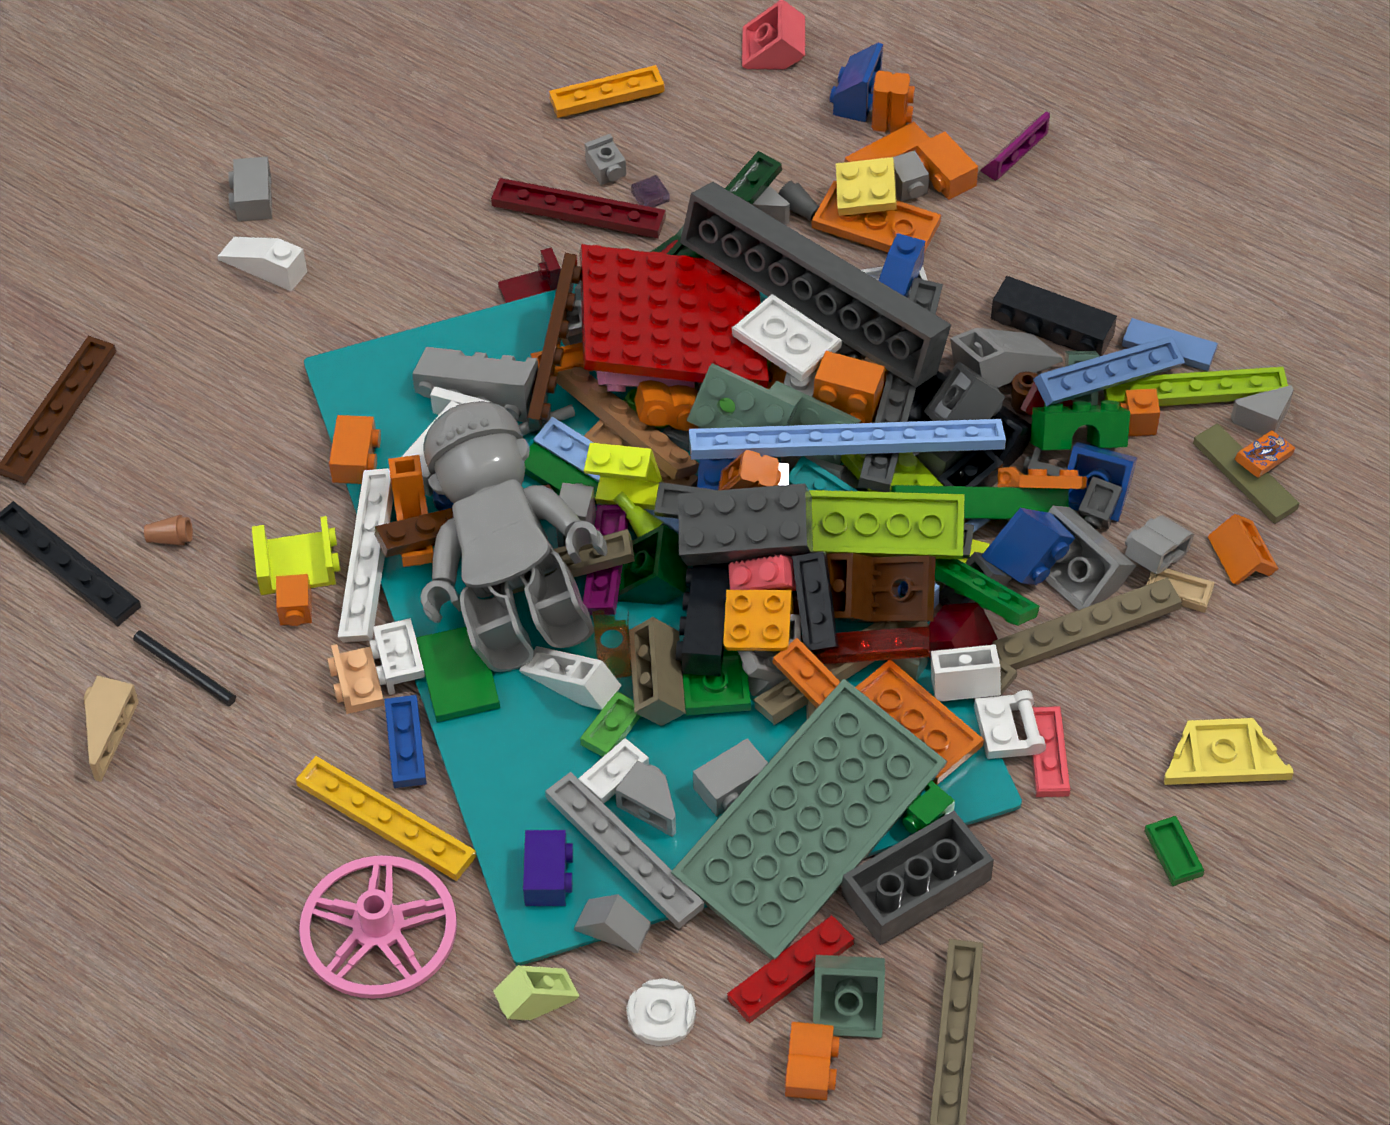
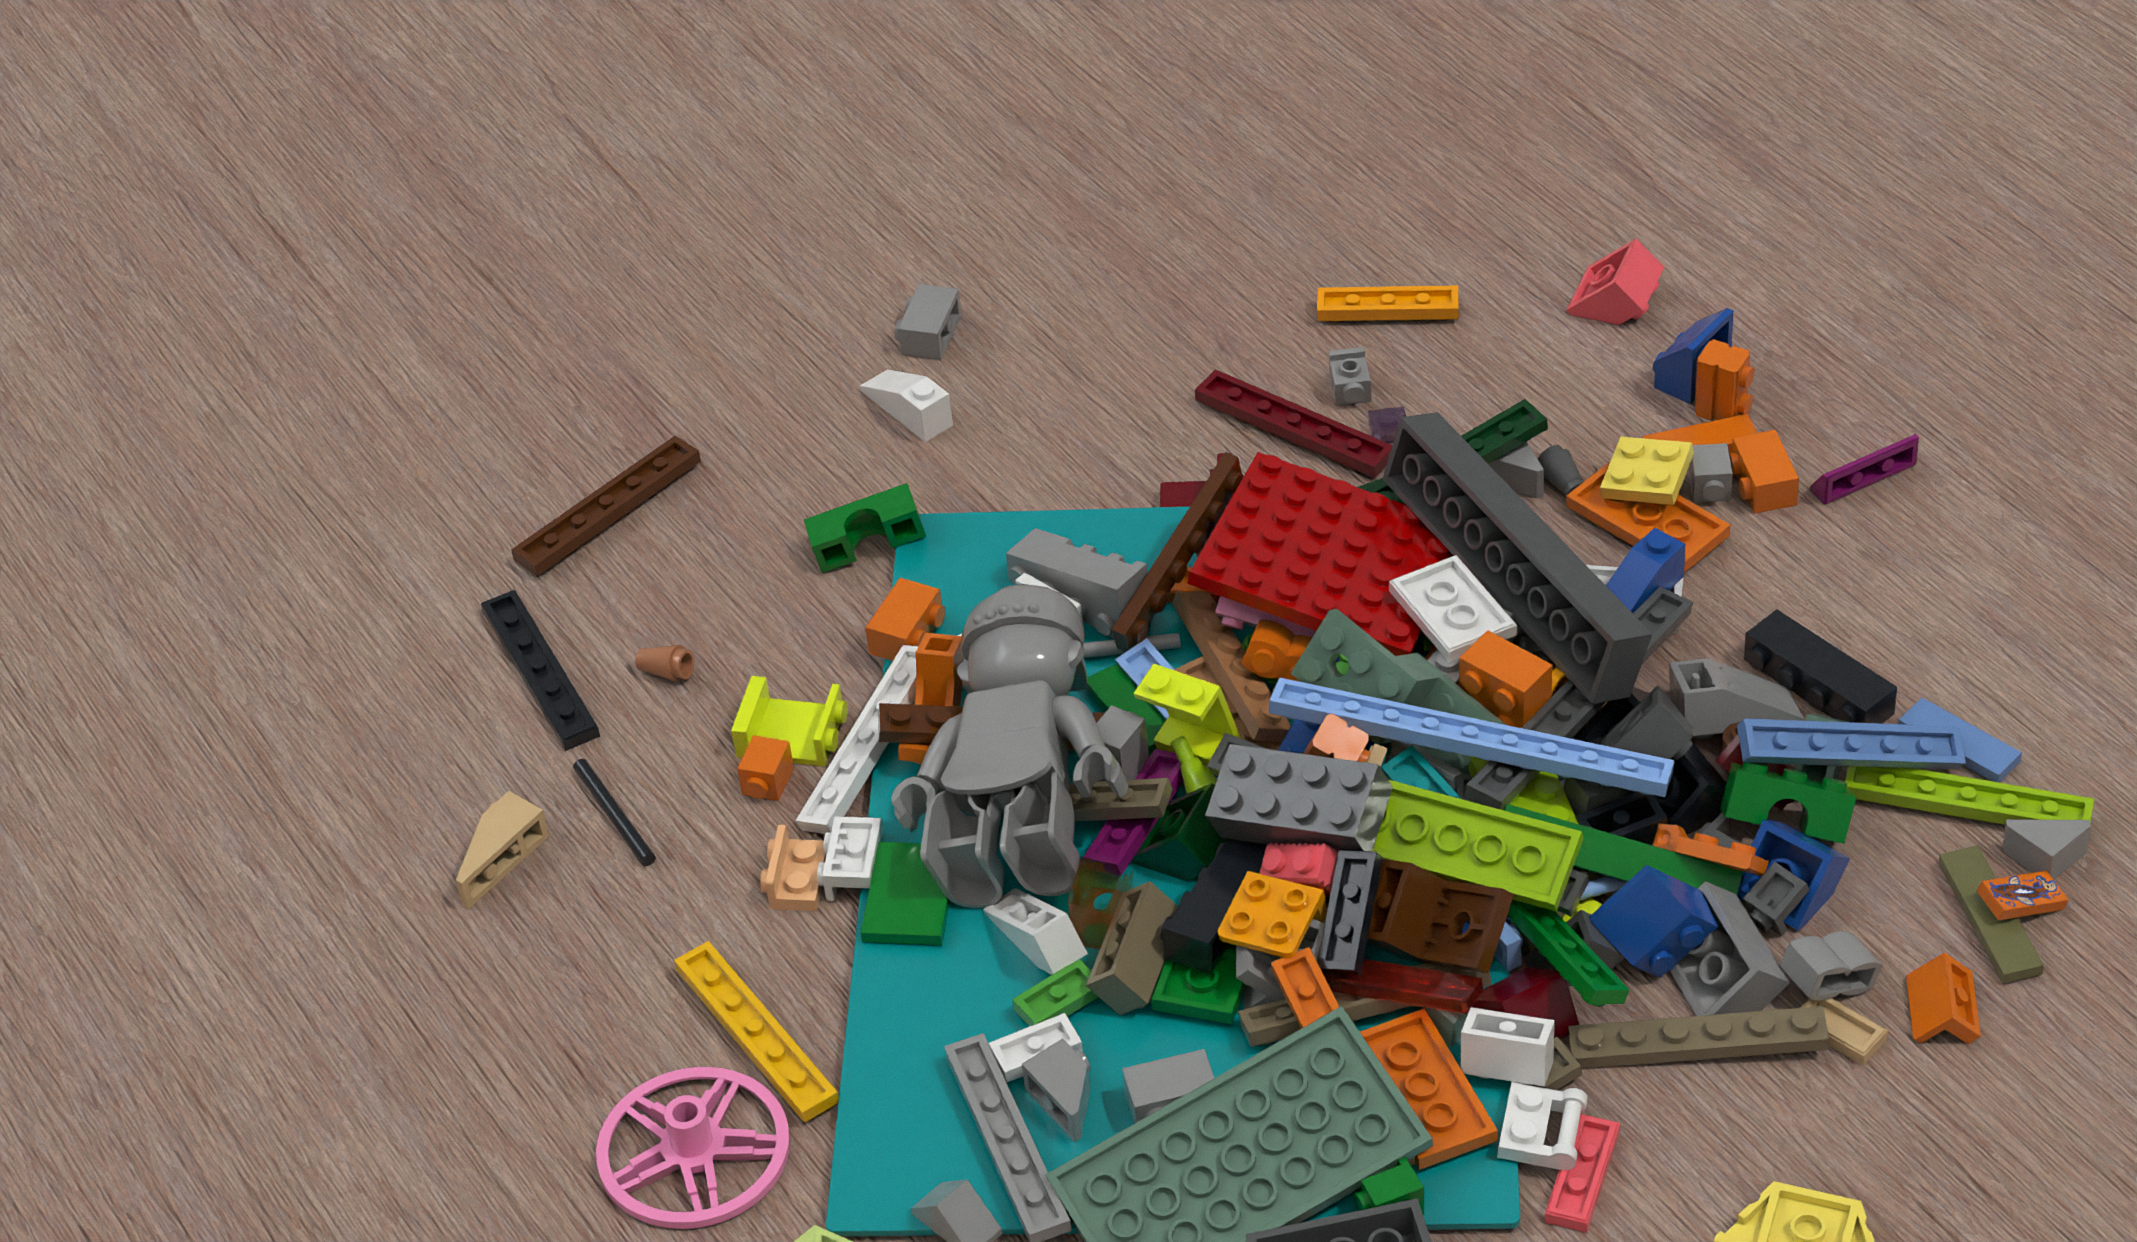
camera: 25 degrees right, 10 degrees down
(298, 361) = (839, 530): none -> green arch
(405, 741) = (817, 953): blue plate -> none
(546, 868) = (905, 1132): dark purple brick -> none
(1143, 411) = (1879, 807): orange brick -> none

